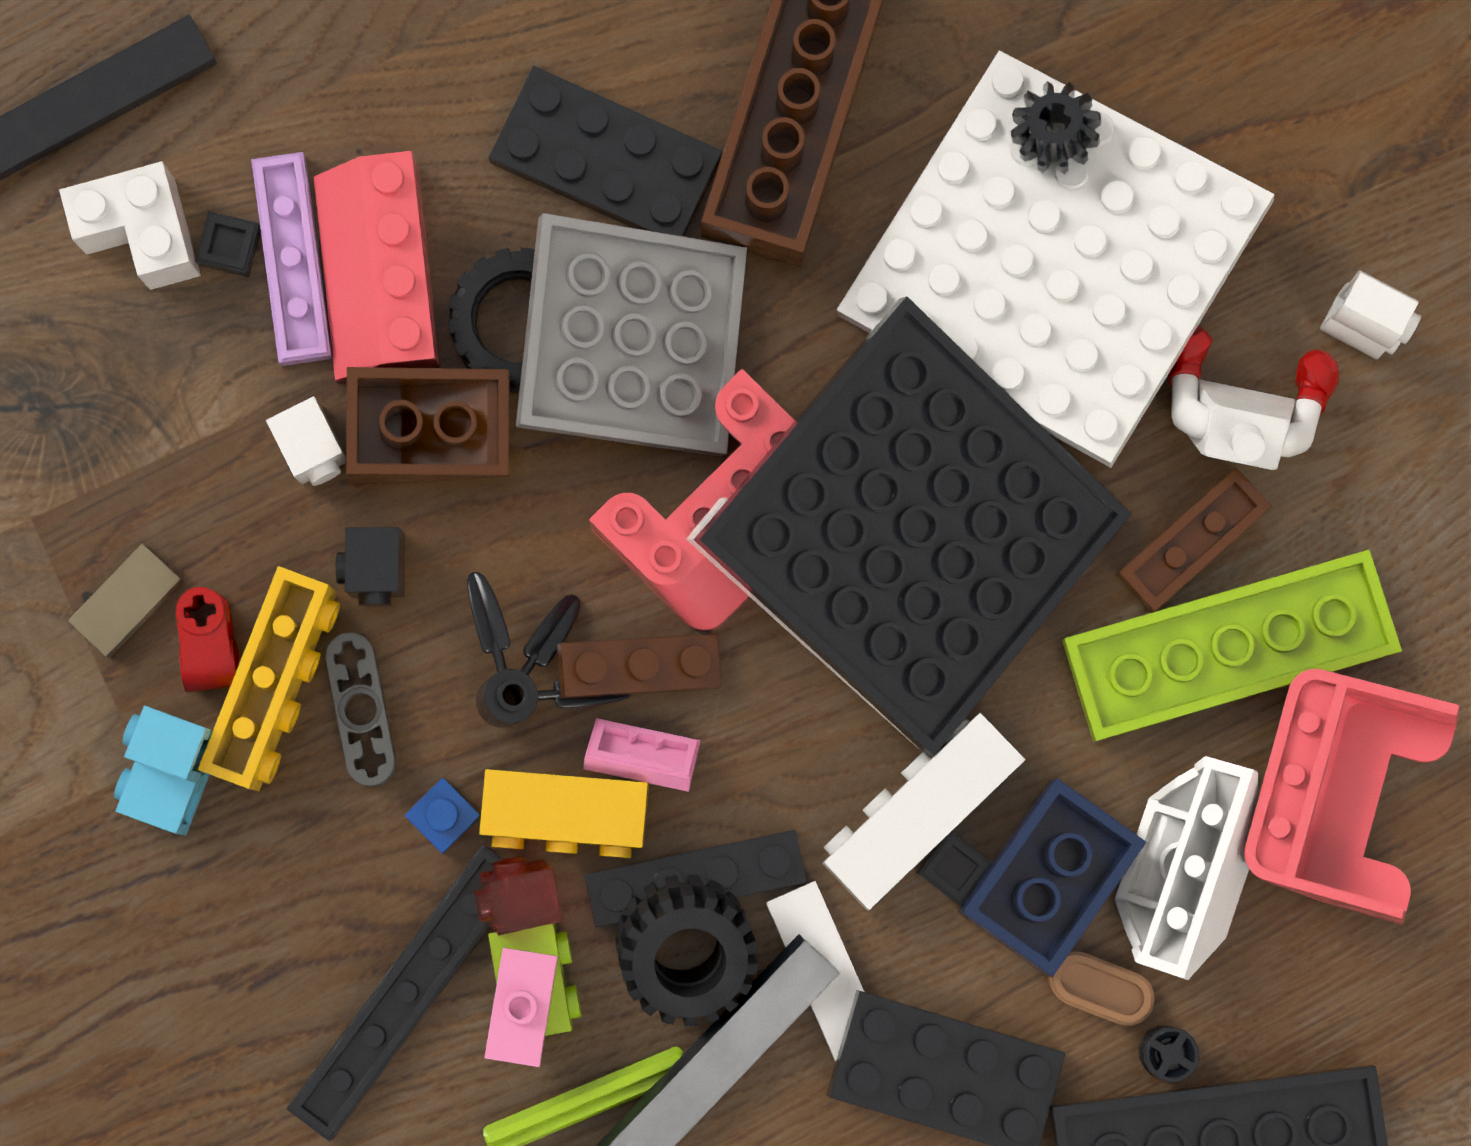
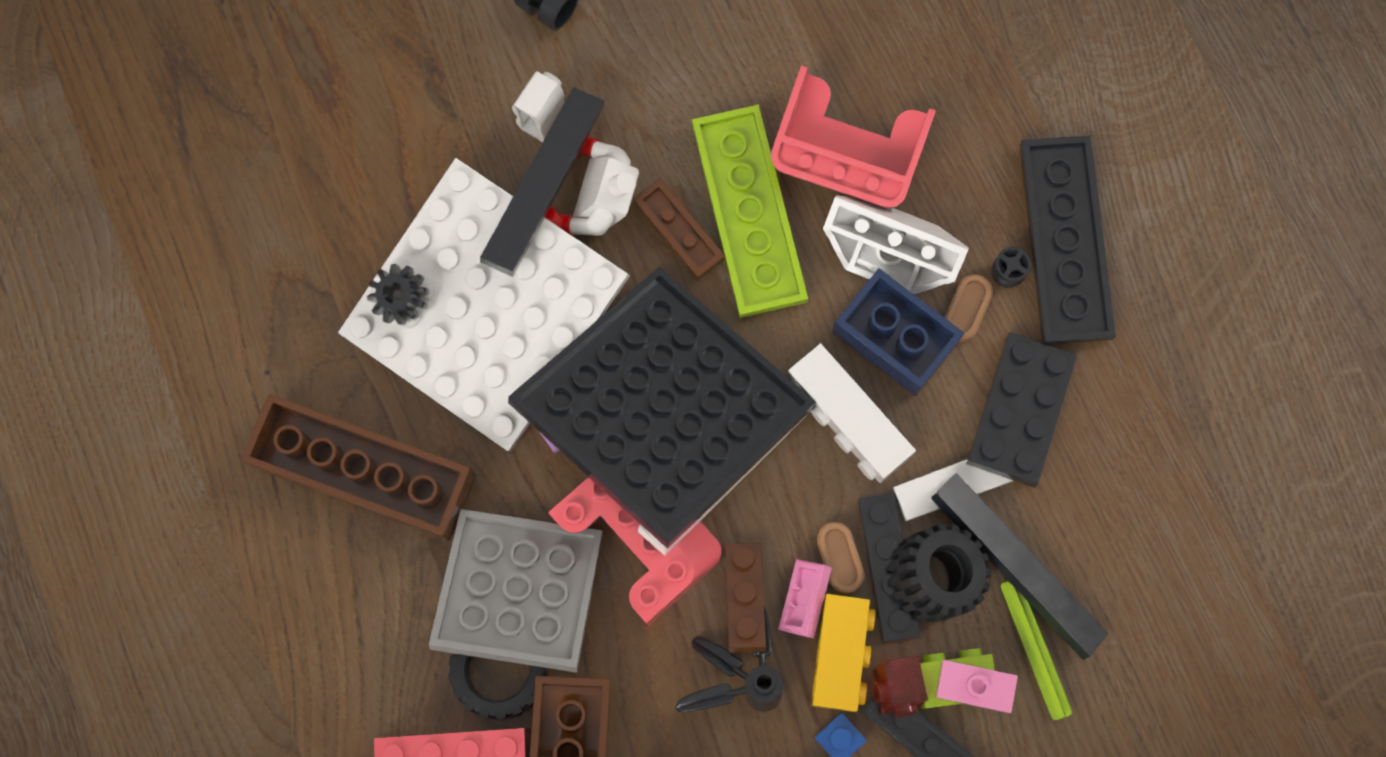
camera: 80 degrees left, 5 degrees down
(604, 155) = (386, 605): black plate -> none
(707, 807) = (840, 552): none -> medium nougat tile
(955, 868) = (888, 395): black tile -> none
(1246, 325) = (542, 182): none -> black tile

